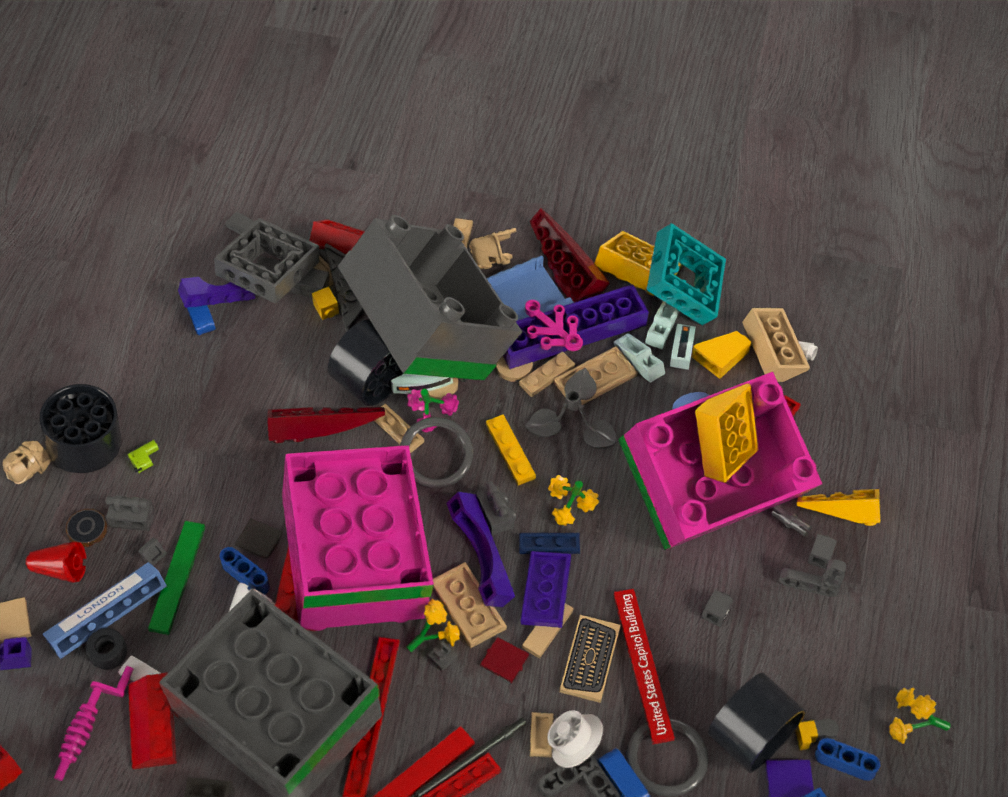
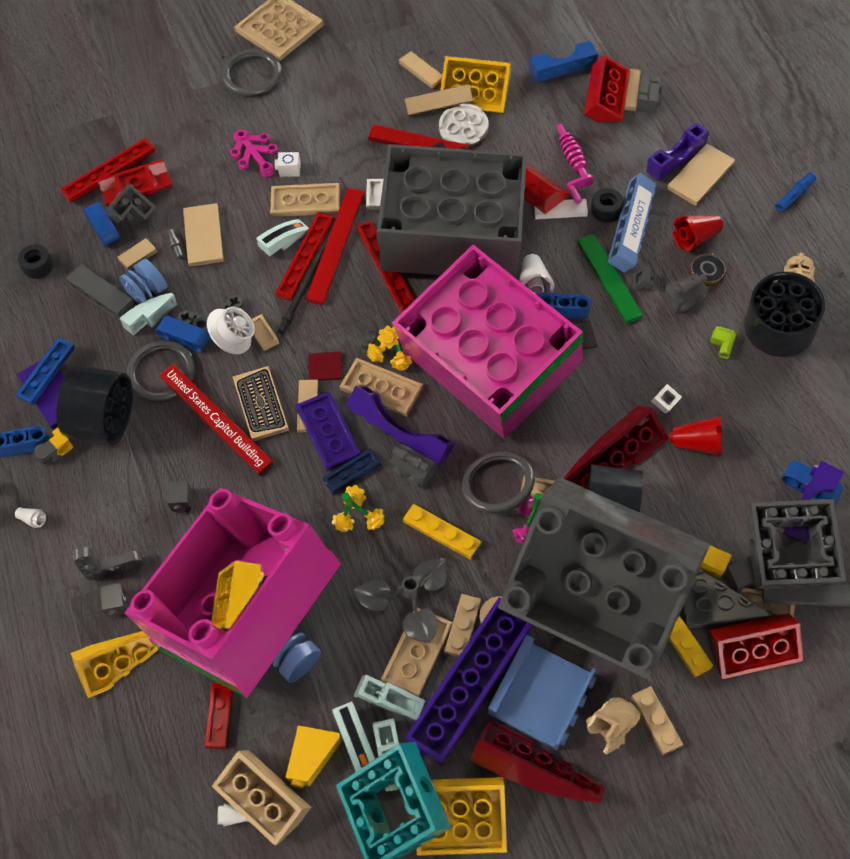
camera: 150 degrees right, 5 degrees up
(242, 431) = (666, 398): none -> white brick
(246, 387) = (699, 436): none -> red cone
(532, 309) = (478, 650): dark pink plant -> none
(865, 673) = (32, 517): none -> white cone

